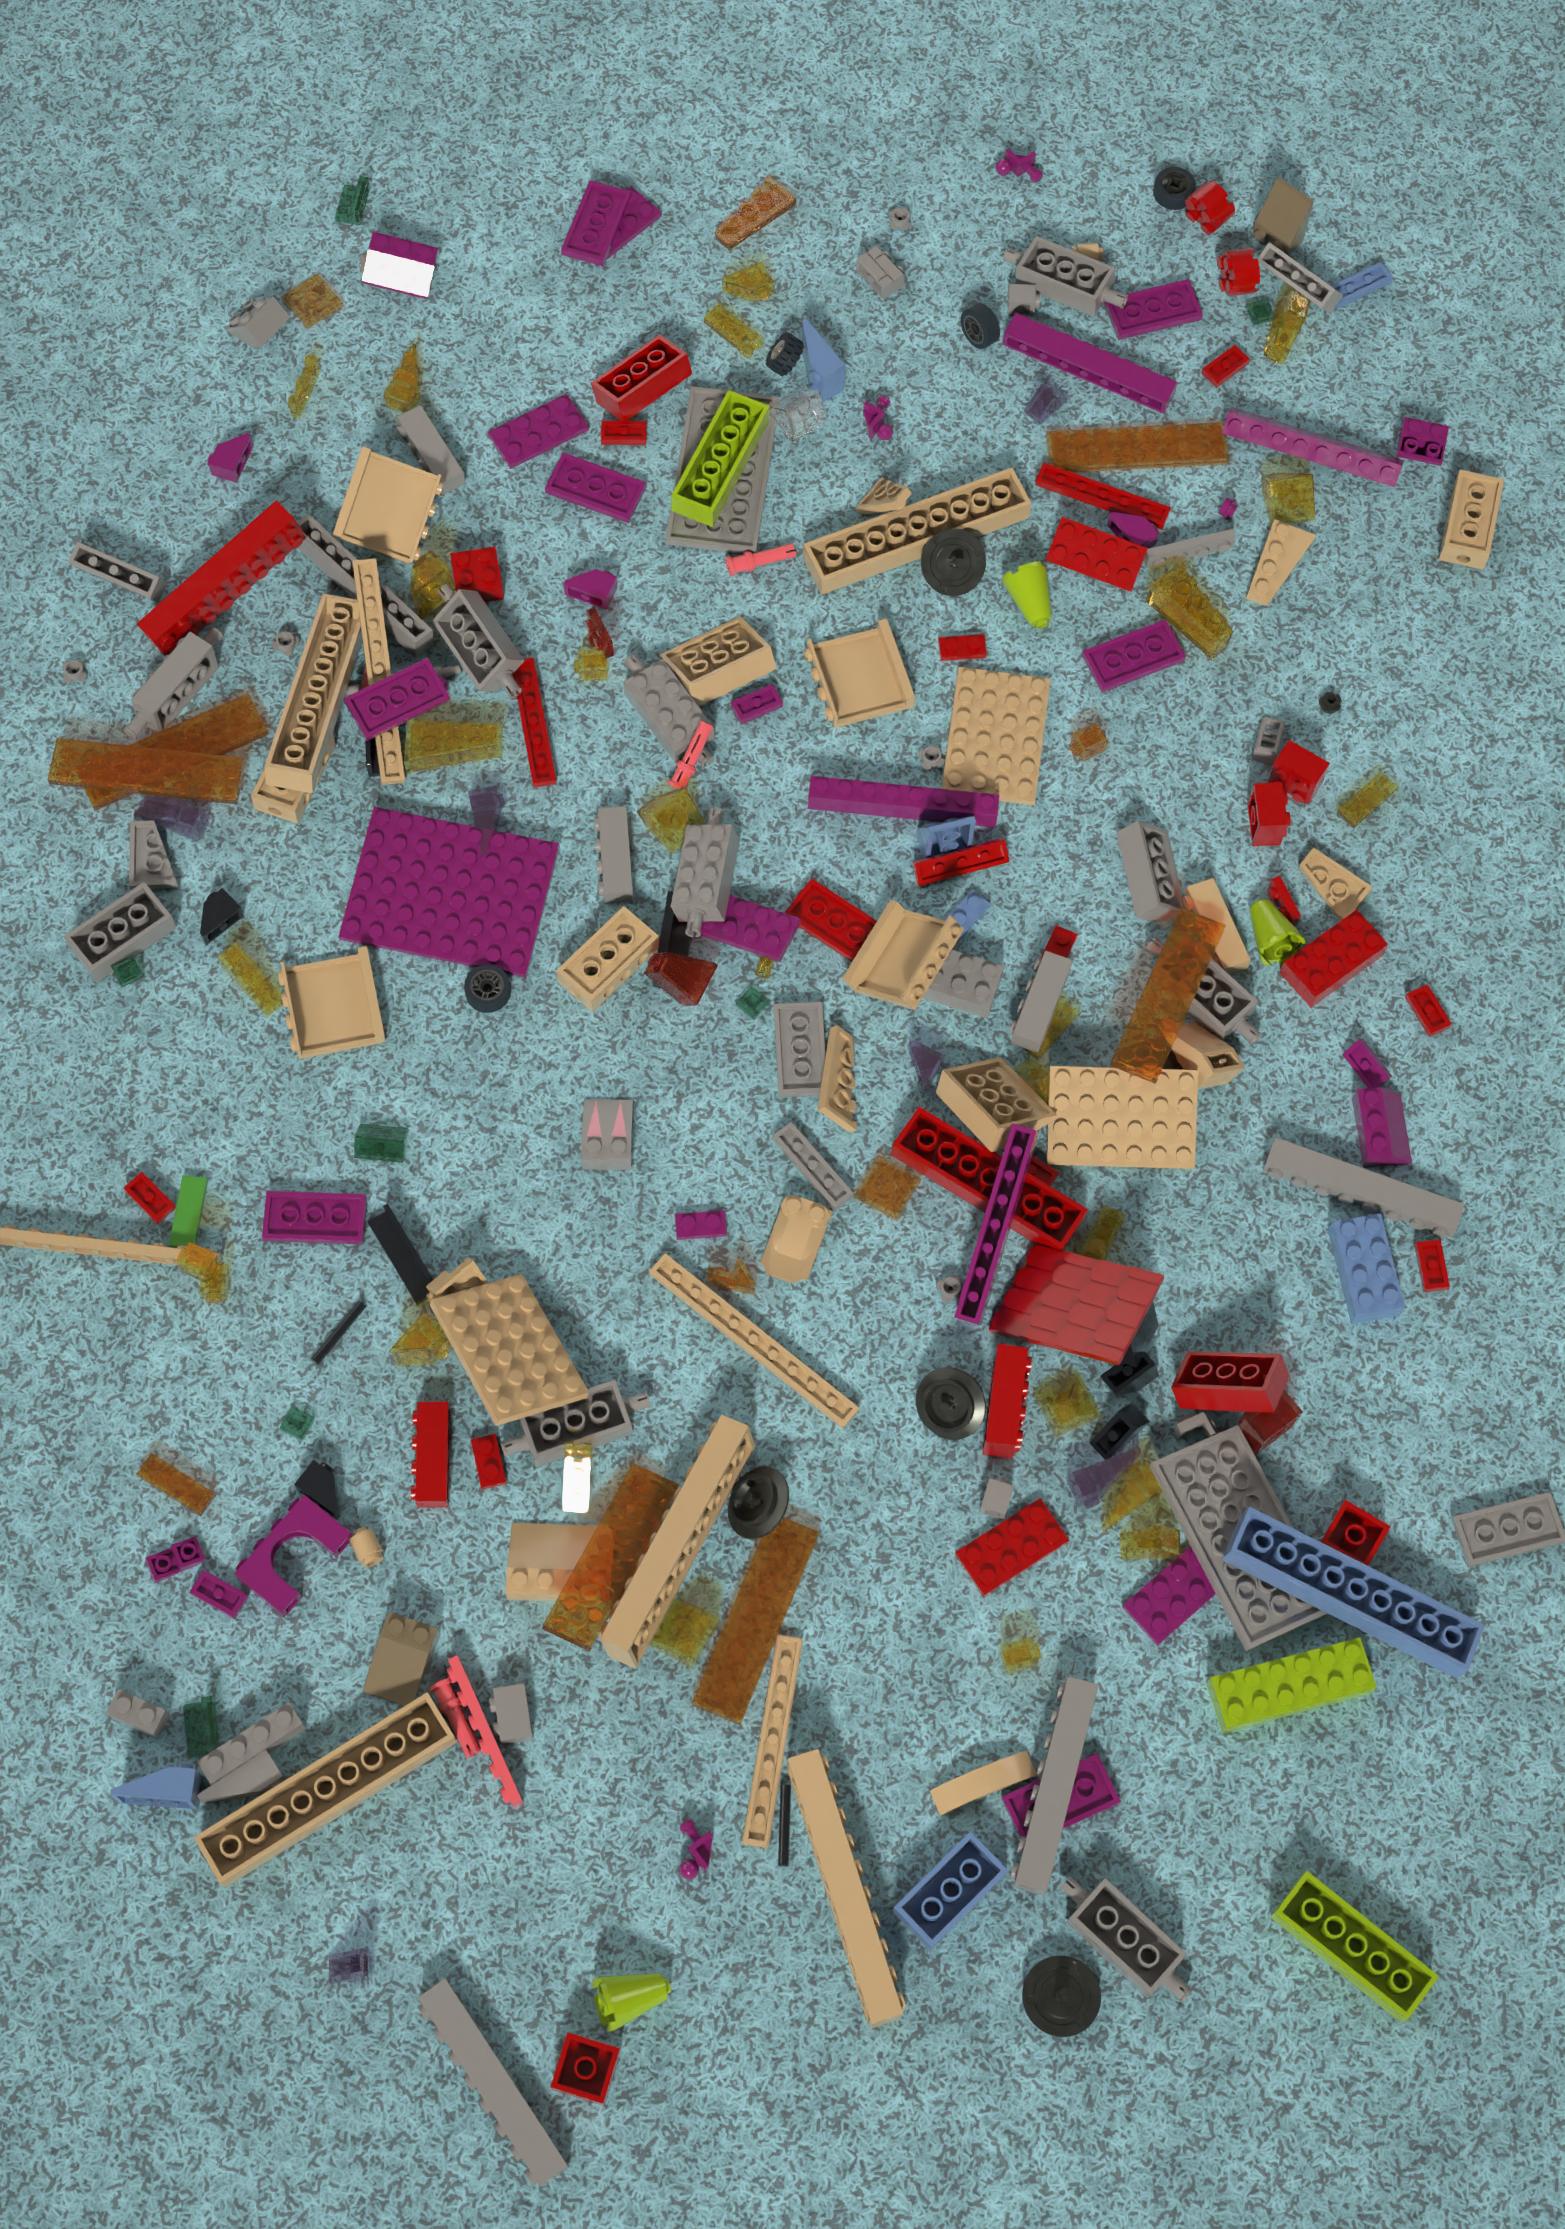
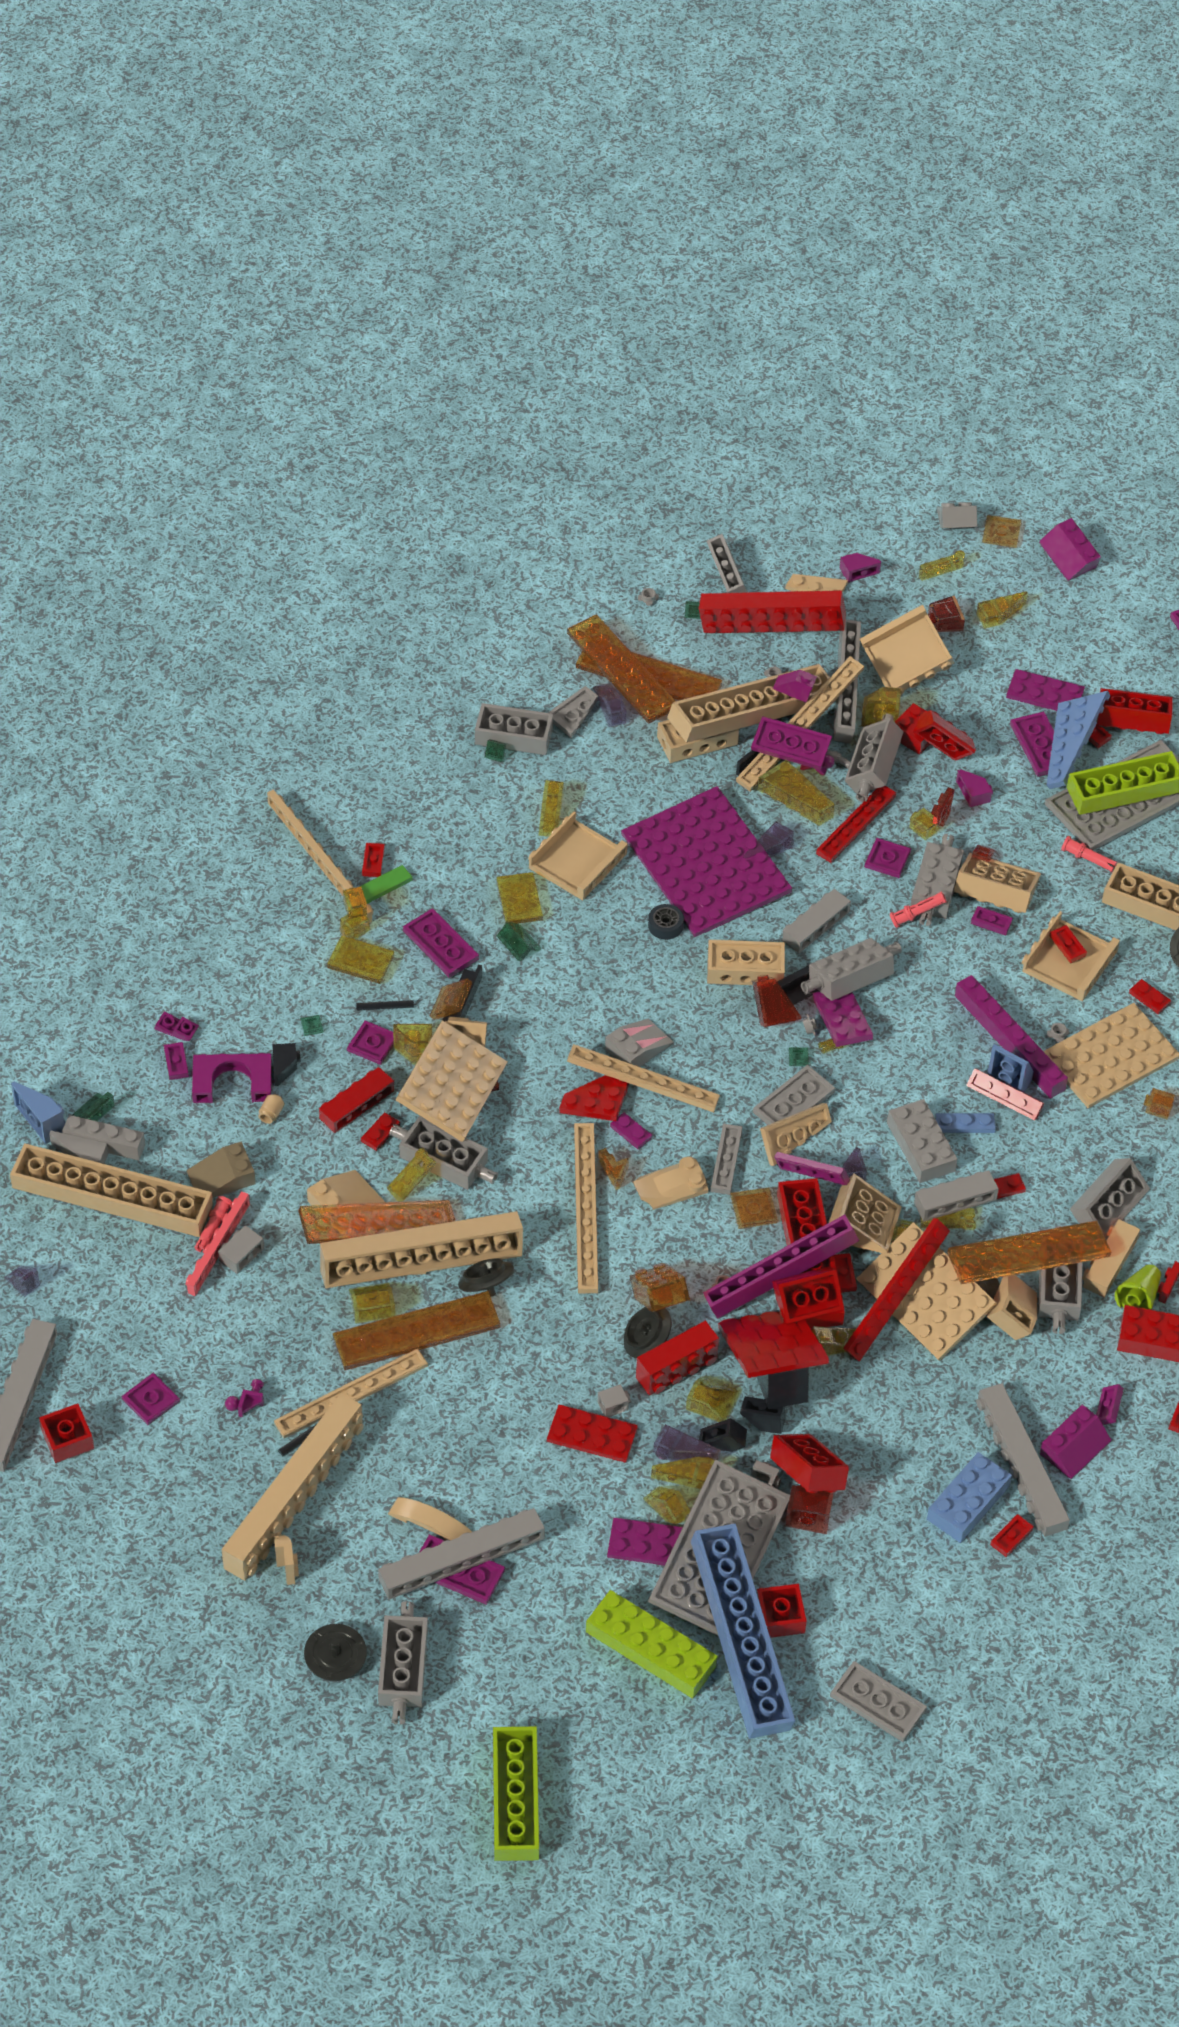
camera: 50 degrees right, 15 degrees down
(132, 644) = (692, 610): none -> clear green tile
(138, 1714) = (71, 1072): light grey brick -> none
(174, 683) = (689, 641): light grey brick -> none
(176, 1484) = (219, 994): clear orange plate -> none
(217, 515) = (813, 583): none -> tan wing
(218, 915) = (572, 766): black slope -> none
(262, 1311) = (360, 959): none -> clear yellow plate
(330, 1099) = (519, 898): none -> clear yellow plate
(338, 636) = (795, 684): none -> magenta slope
(353, 202) = (1087, 502): clear green panel -> none
(366, 431) = (946, 615): none -> clear red torso
(373, 1381) = (372, 1042): none -> magenta tile
(397, 1265) = (451, 999): none -> clear orange tile
(429, 448) = (970, 650): light grey brick -> none
(518, 560) = (944, 735): none -> red slope
(598, 729) = (887, 857): none -> magenta tile
(609, 1946) = (150, 1398): none -> magenta tile
(619, 450) = (1072, 730): none -> medium blue wing
(628, 1996) = (128, 1424): lime cone -> none
(636, 1223) = (596, 1099): none -> red plate
(655, 1164) = (643, 1078): none -> tan tile
(668, 817) = (871, 925): clear yellow slope -> none
(673, 645) = (983, 853): none -> clear red tile
(729, 963) = (810, 1025): none -> light grey plate
(831, 919) = (895, 1061): red plate -> none
(846, 663) = (1068, 944): none -> red plate
(901, 1101) = (812, 1168): none -> magenta tile
(902, 956) = (903, 1098): tan panel -> none
(914, 1955) = (286, 1558): none -> tan slope
(918, 1353) = (659, 1287): none -> clear orange brick
(950, 1891) = (343, 1545): medium blue brick -> none
(1020, 1656) = (526, 1483): clear yellow brick -> none
(1047, 1225) = (808, 1294): none -> red slope
(1107, 1144) = (896, 1289): none -> red plate

